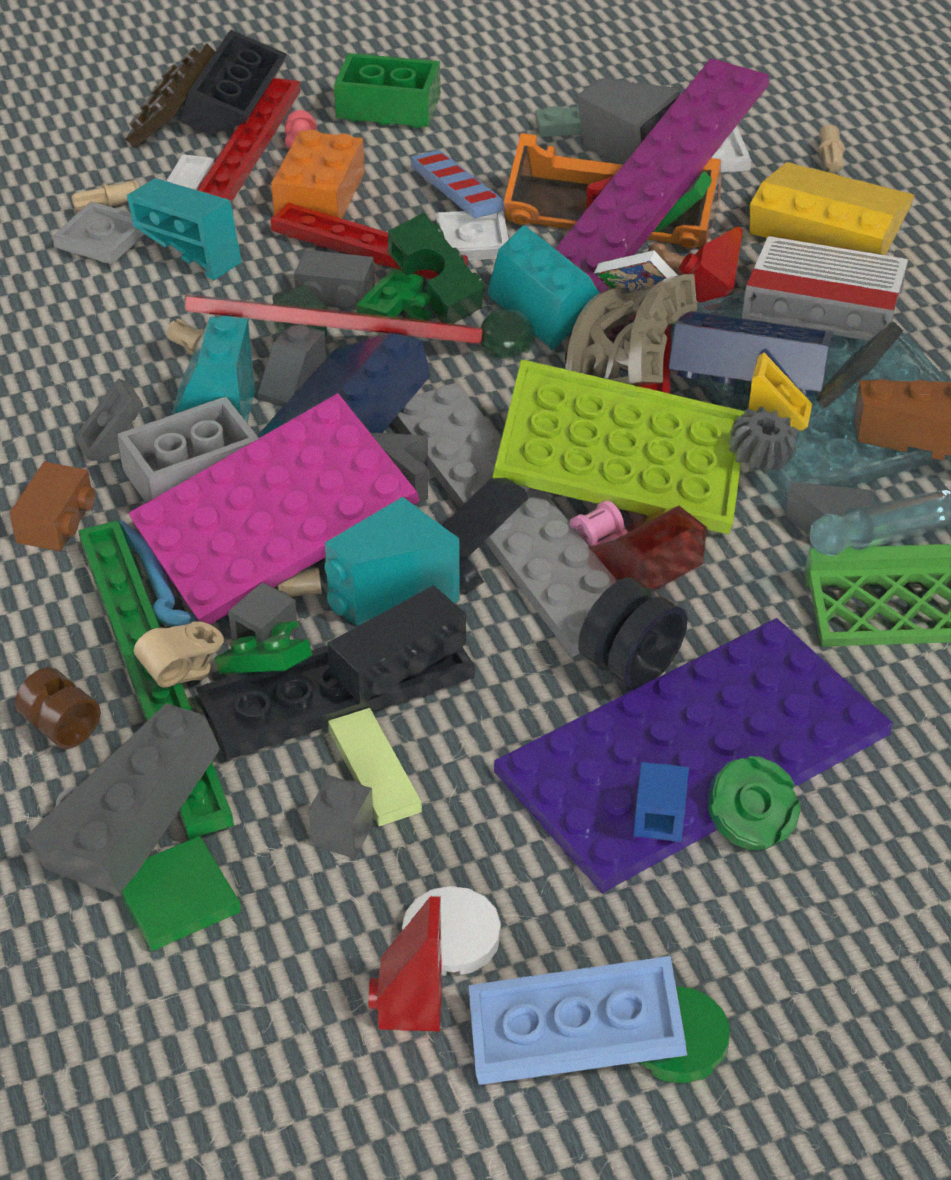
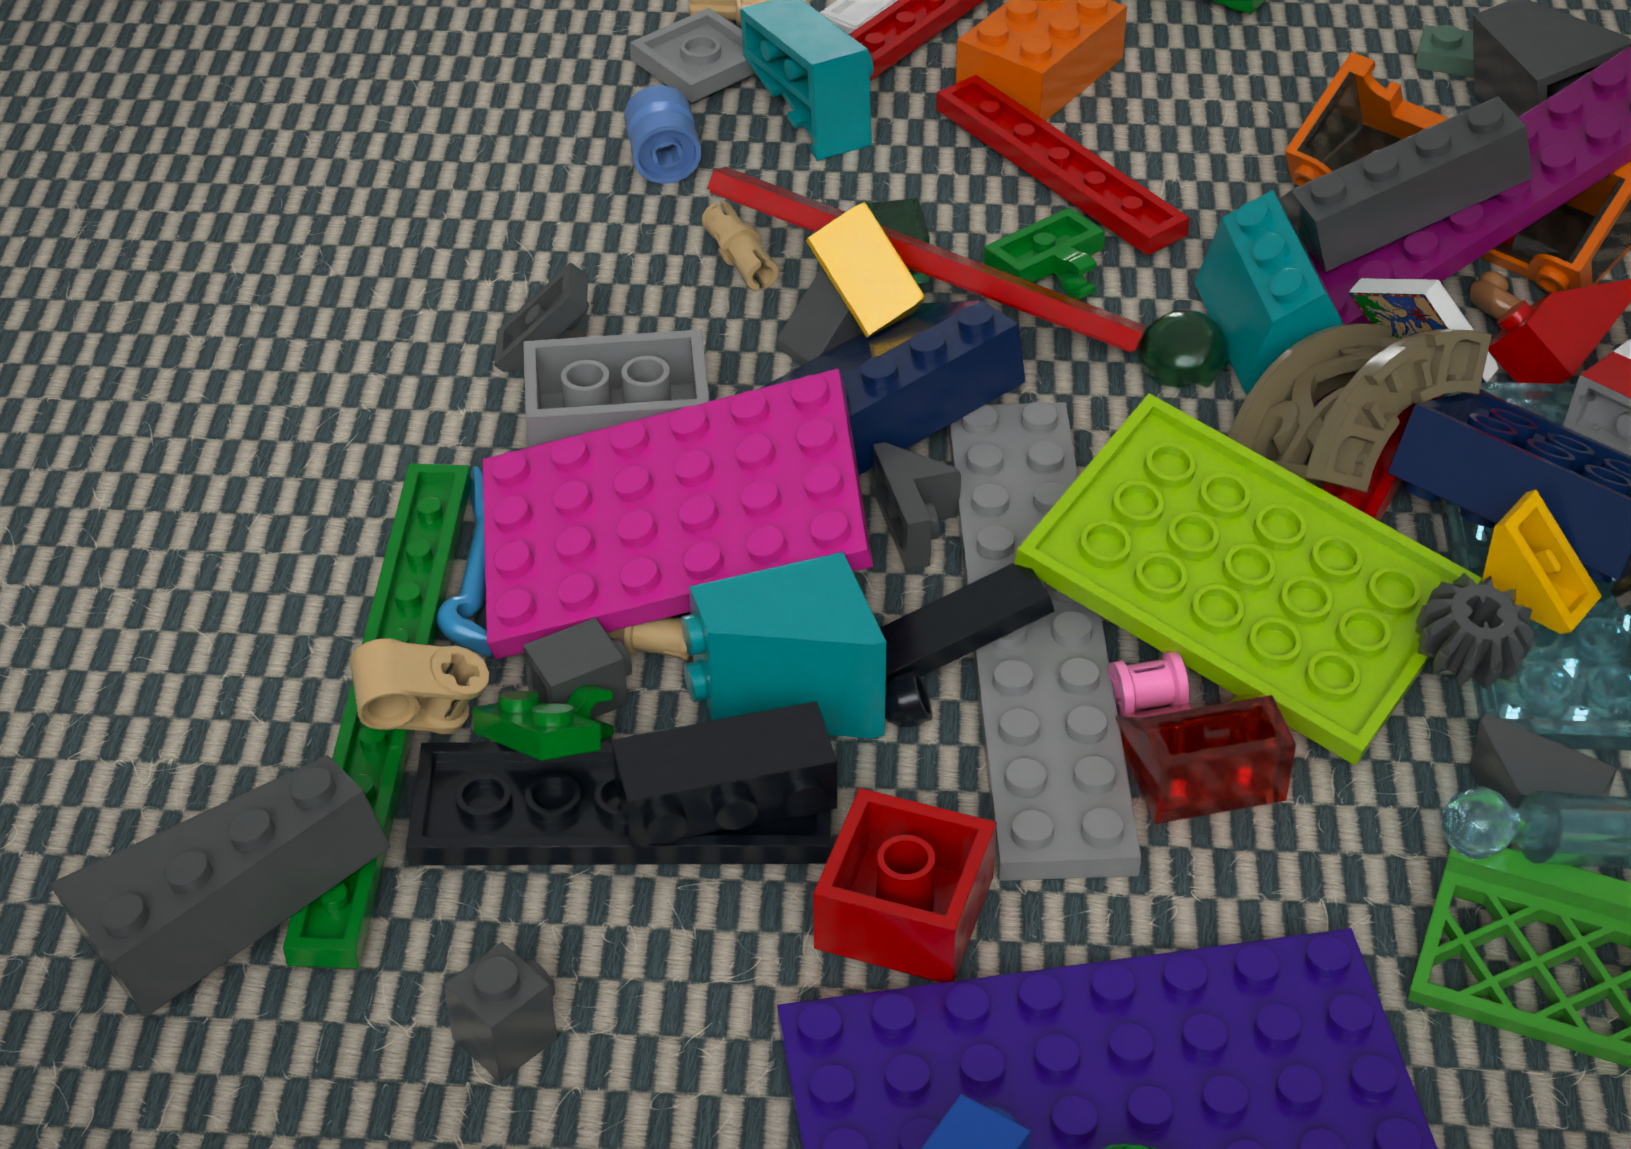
camera: 25 degrees right, 0 degrees up
(52, 506) = (398, 419): dark orange brick -> none
(57, 707) = (224, 710): reddish brown wheel -> none
(112, 287) = (662, 134): none -> medium blue wheel
(179, 894) = (224, 1043): green tile -> none
(220, 367) = (727, 290): teal slope -> none
(308, 333) = (866, 270): none -> yellow slope
(335, 277) = (975, 199): dark grey brick -> none
(375, 766) = (604, 952): yellowish green tile -> none
(422, 246) = (1114, 185): dark green arch -> none
(457, 184) = (1240, 108): medium blue tile -> none
(474, 237) = (1218, 181): white tile -> none
(533, 672) = (904, 885): none -> red brick
(600, 199) = (1410, 184): none -> dark grey slope
(632, 633) = (1086, 877): black wheel -> none
(691, 195) = (1562, 217): green tile -> none

